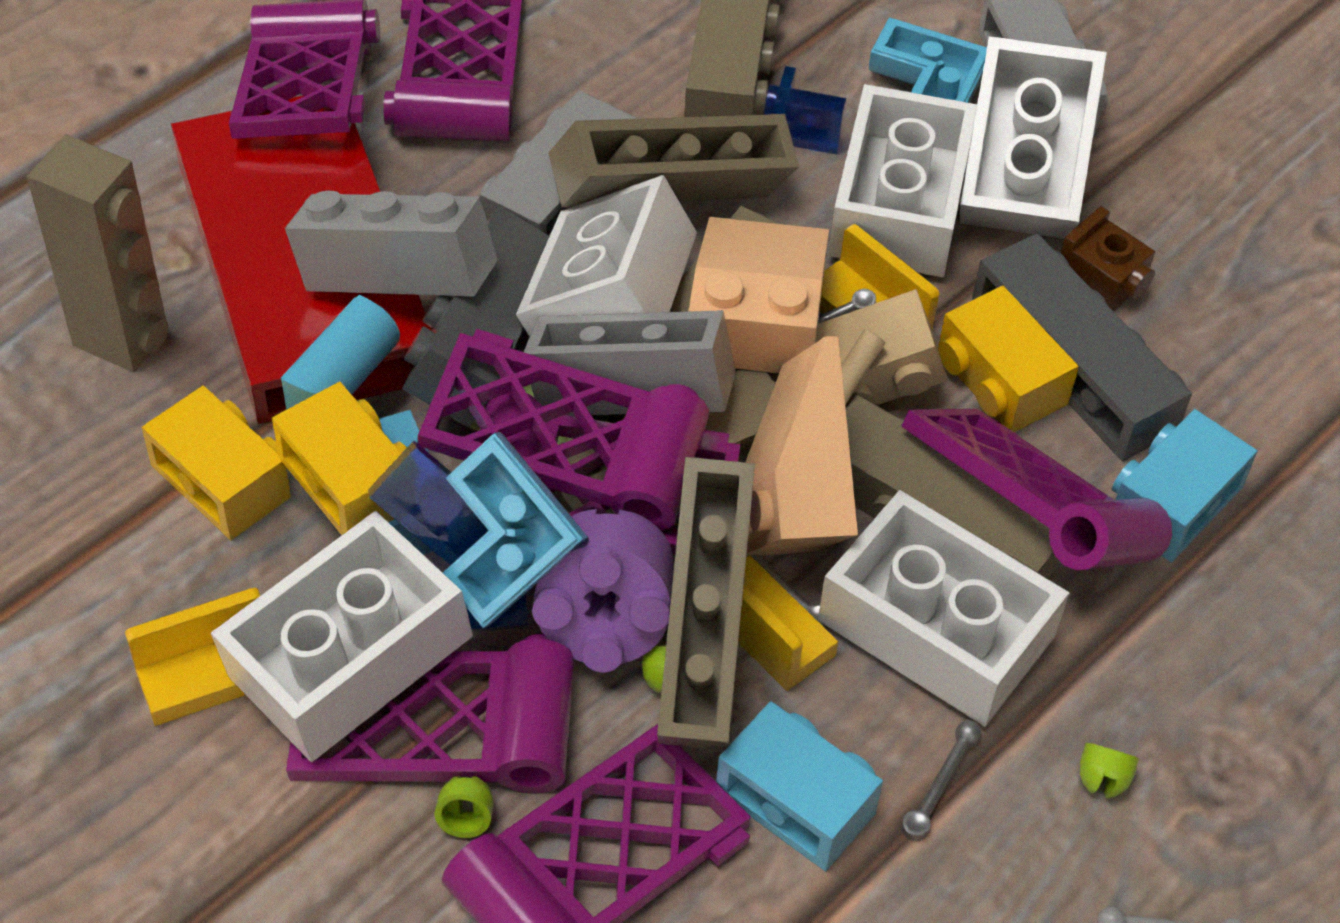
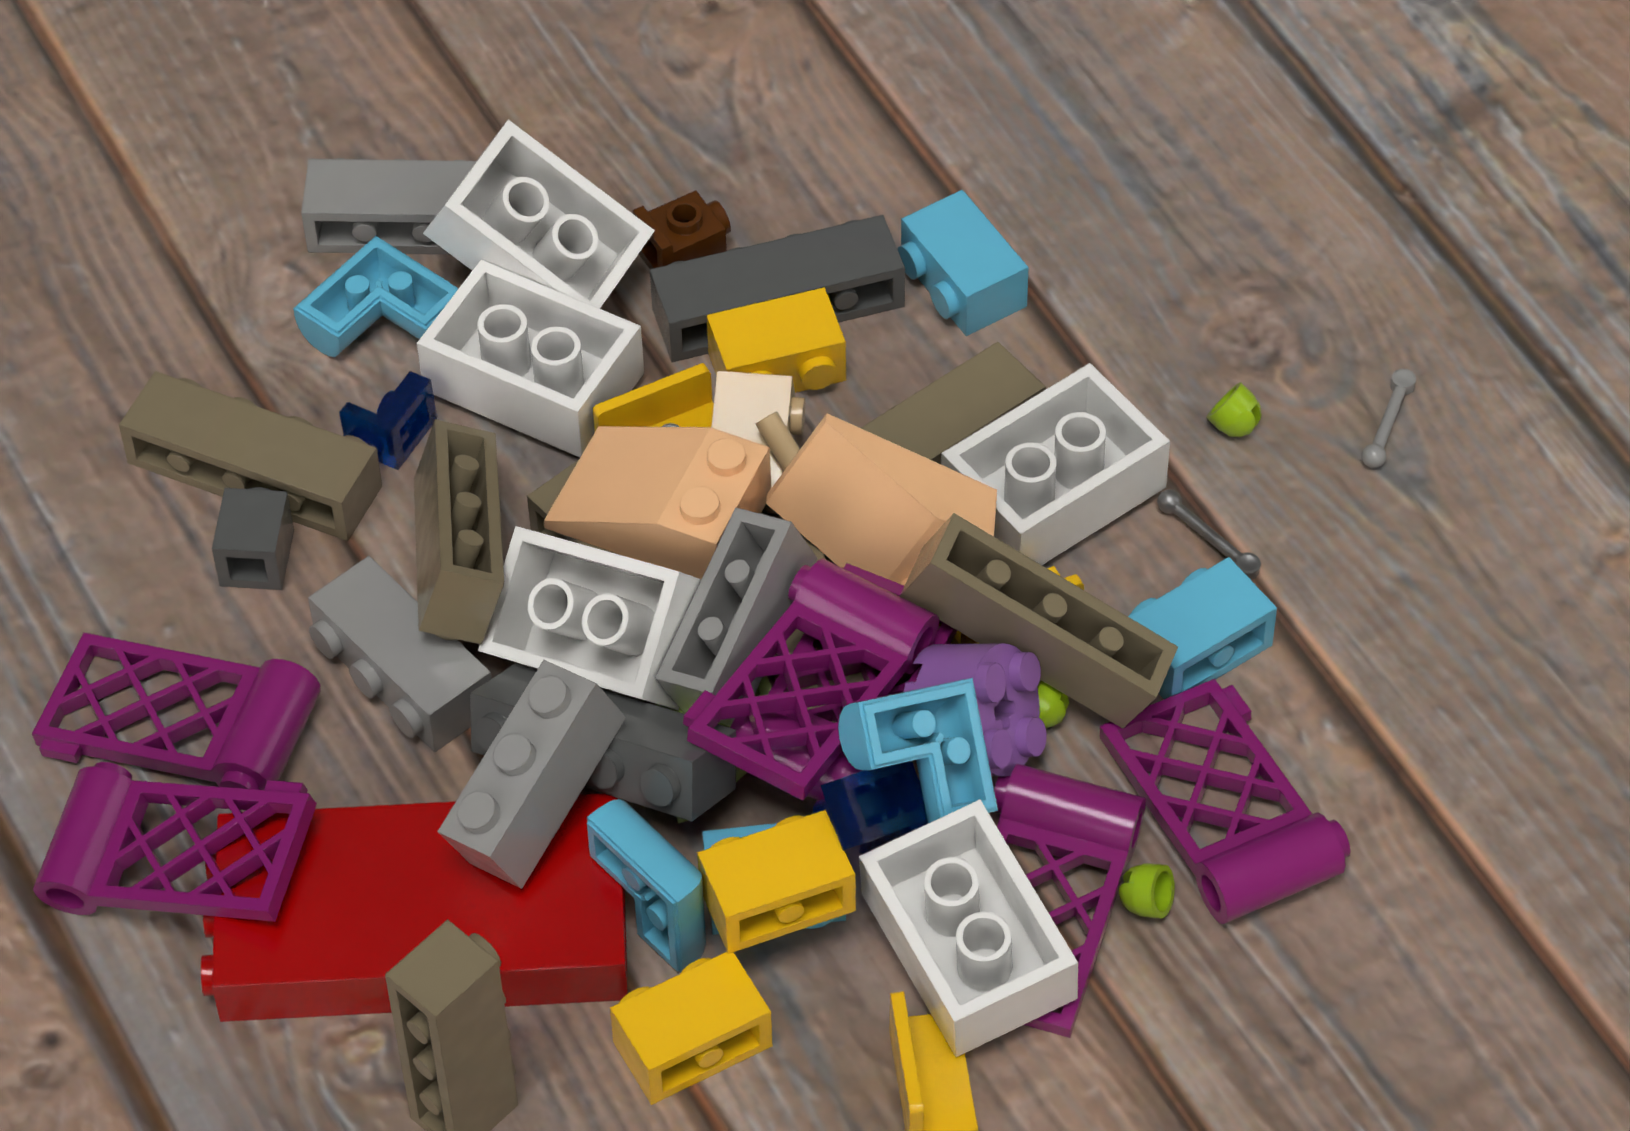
camera: 70 degrees left, 0 degrees up
(647, 56) = (253, 538): none -> dark grey brick
(1083, 521) = (1013, 321): magenta piece -> none

